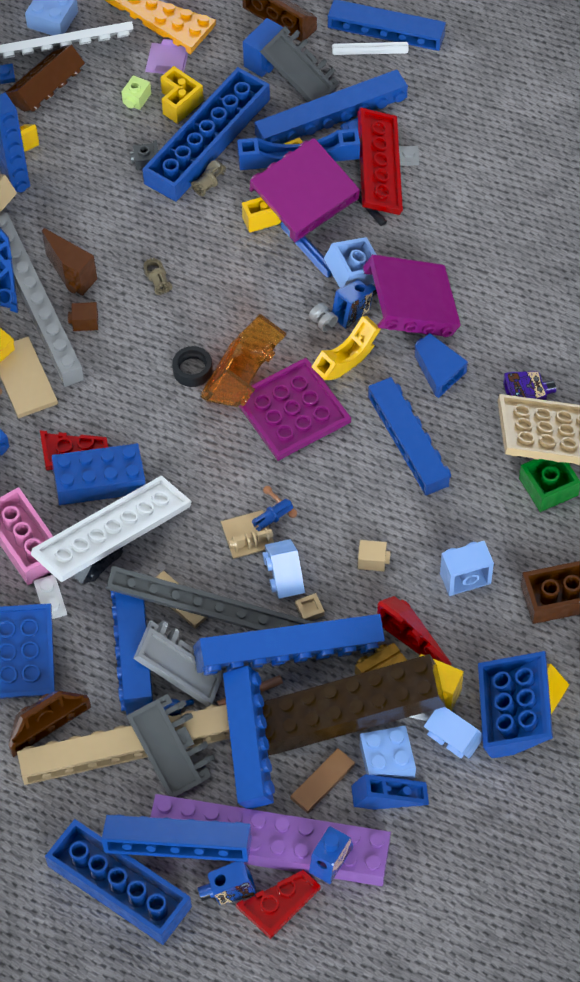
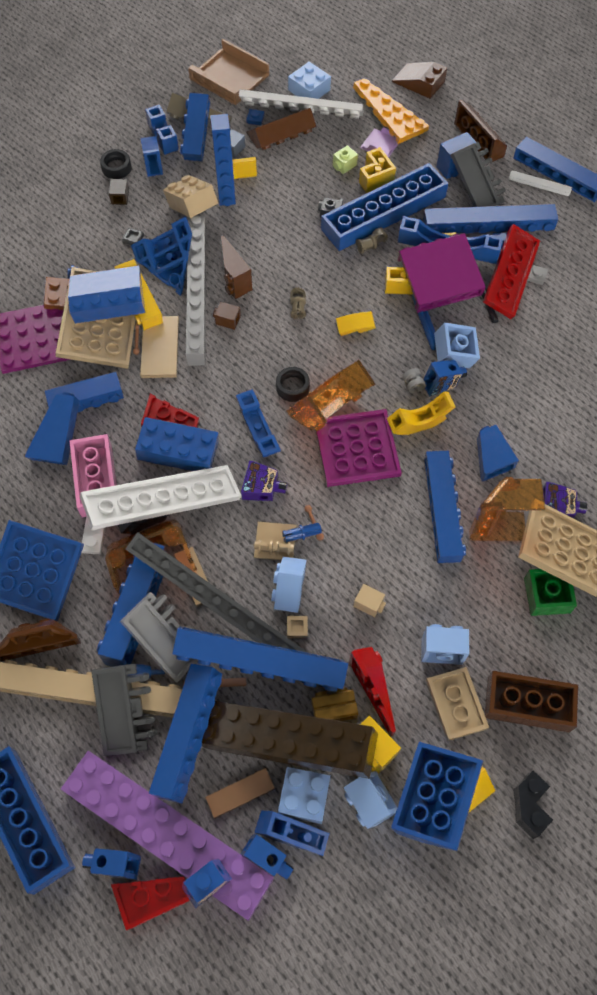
camera: 20 degrees right, 5 degrees up
(92, 600) = (164, 533): none -> clear orange windscreen
(172, 422) = (257, 424): none -> blue slope
(177, 838) = (80, 807): blue brick -> none
(207, 480) = (261, 483): none -> torso
(232, 275) = (355, 322): none -> yellow slope
(376, 816) = (257, 852): none -> blue torso
(413, 296) = (494, 389): magenta panel -> none
(466, 433) = (510, 494): none -> clear orange windscreen
(500, 619) = (457, 703): none -> tan plate

